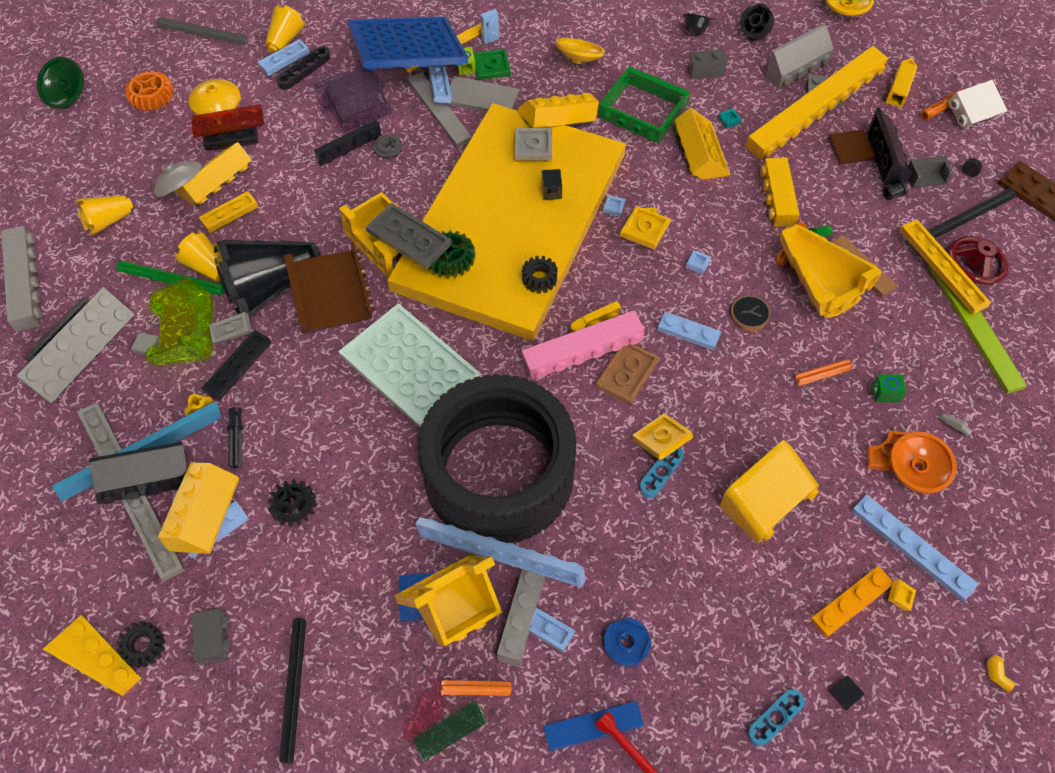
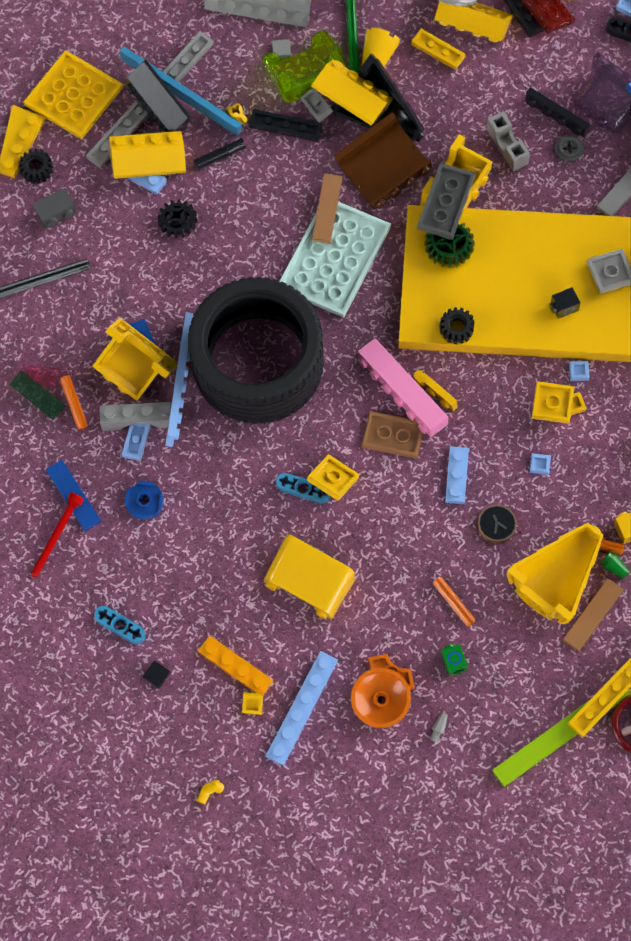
camera: 75 degrees right, 10 degrees up
(71, 573) = (73, 94): none -> yellow plate
(239, 284) = (352, 92): none -> yellow slope
(346, 188) = (513, 151): none -> light grey arch
(355, 351) = (327, 208): none -> medium nougat tile

